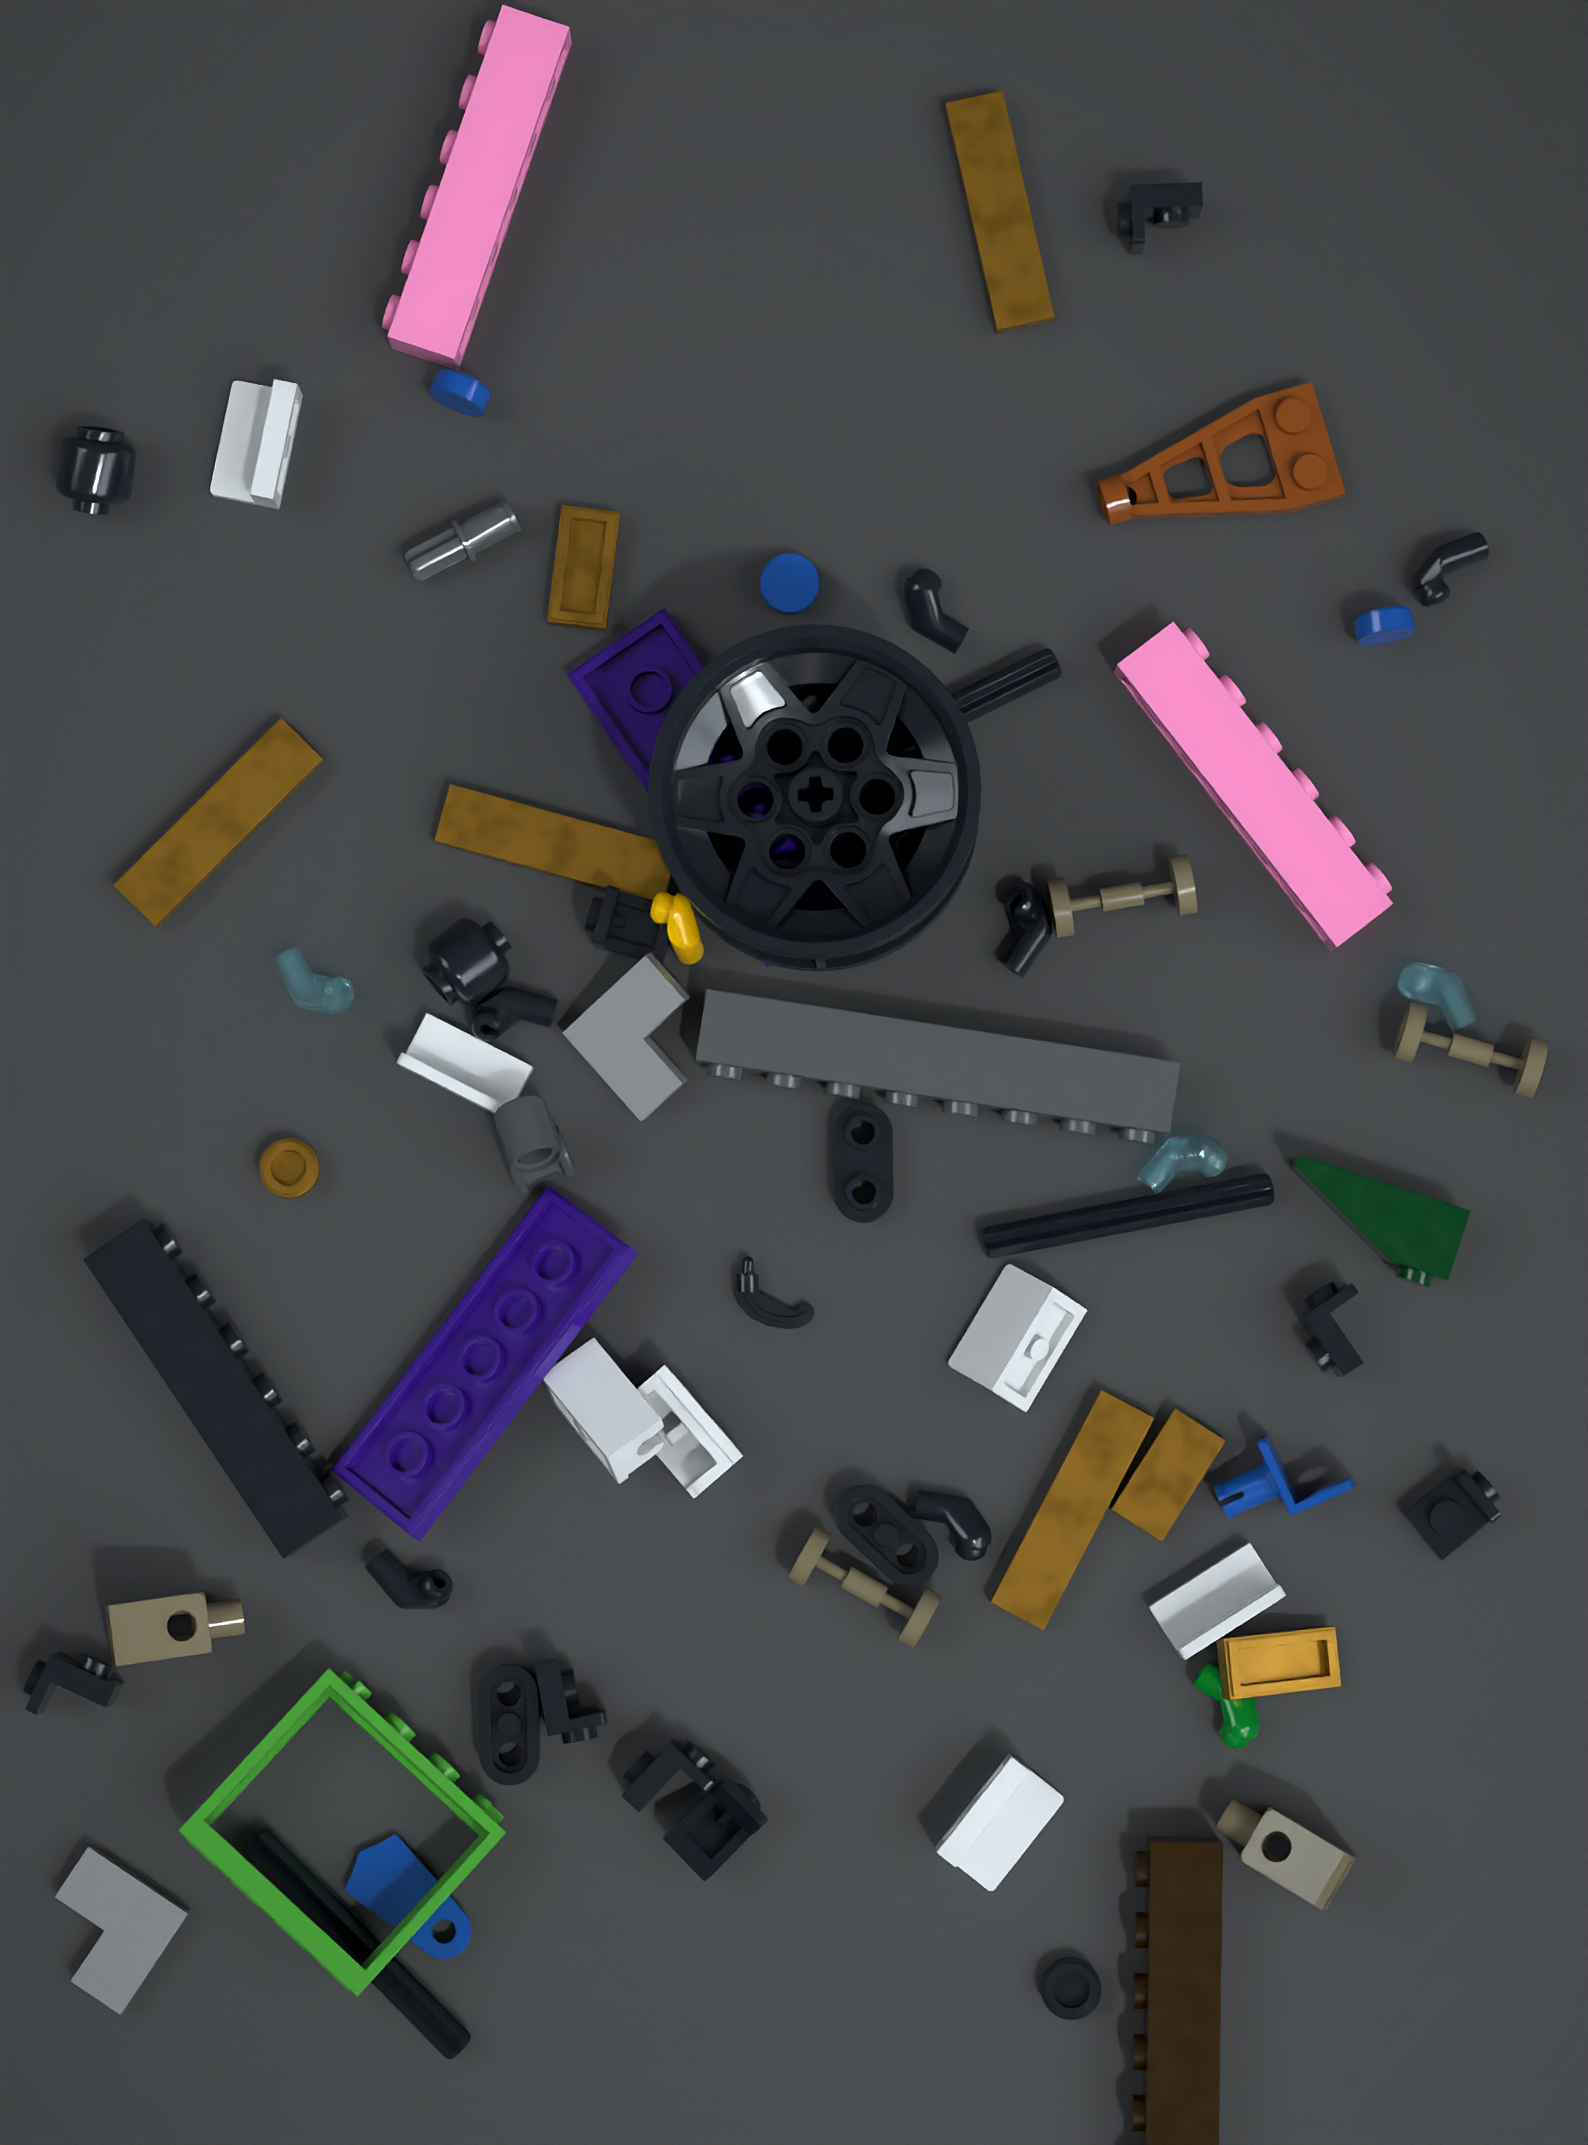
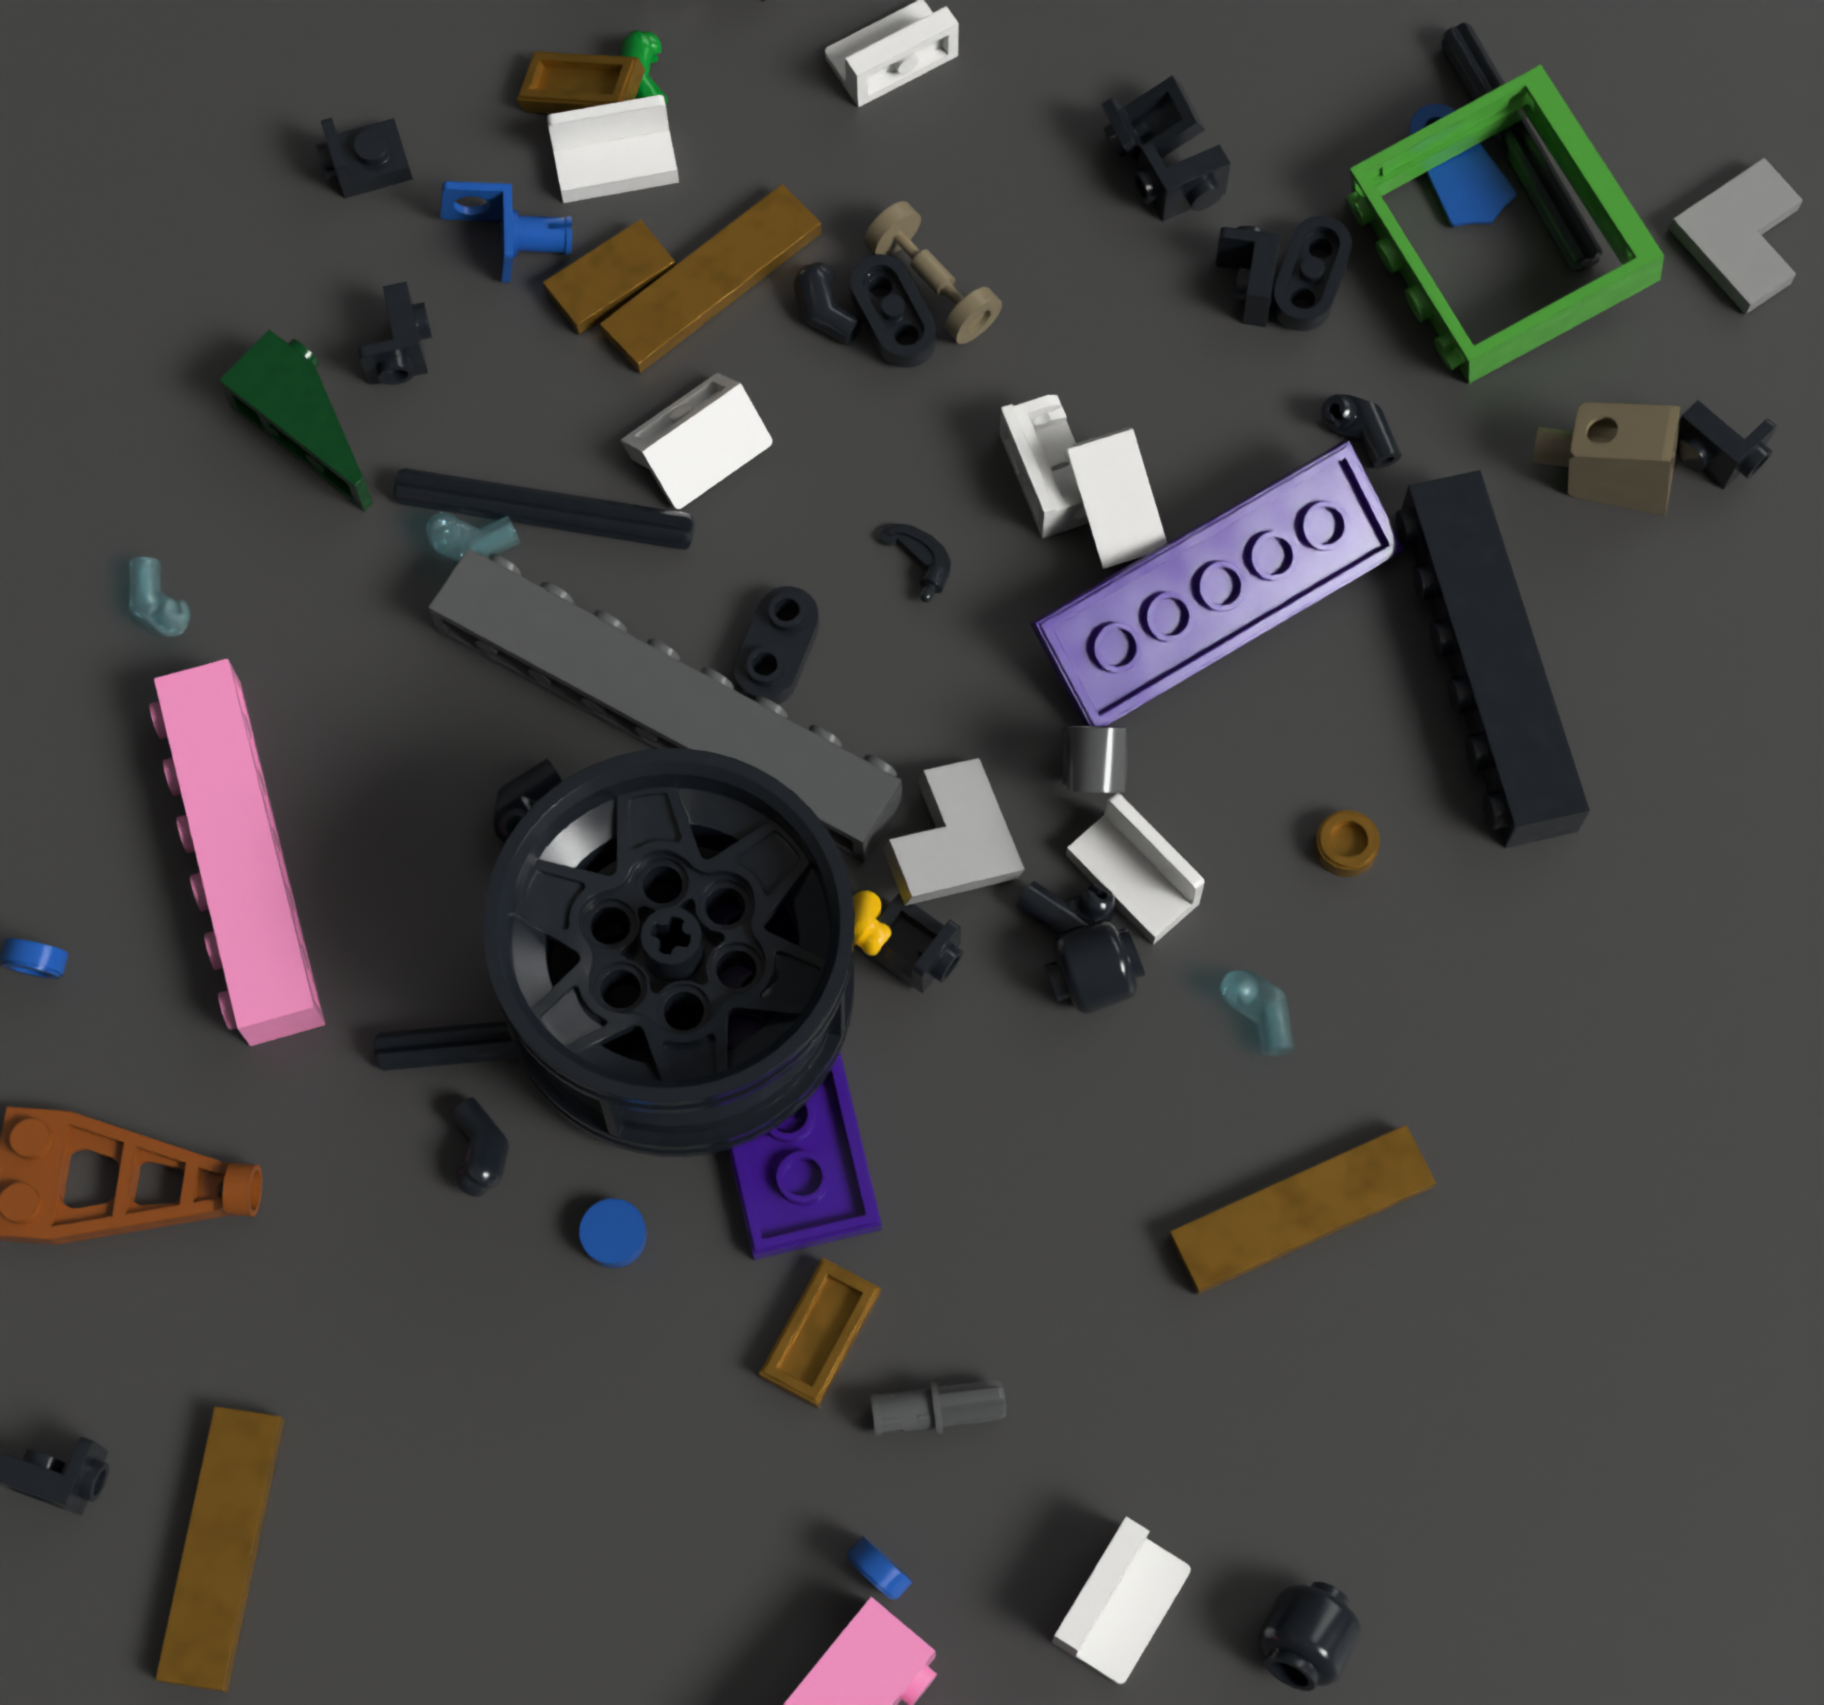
camera: 160 degrees left, 15 degrees down
(551, 843) = (962, 1059): pearl gold tile -> none
(1122, 896) = (352, 784): dark tan wheel -> none
(1528, 1067) = (104, 499): dark tan wheel -> none

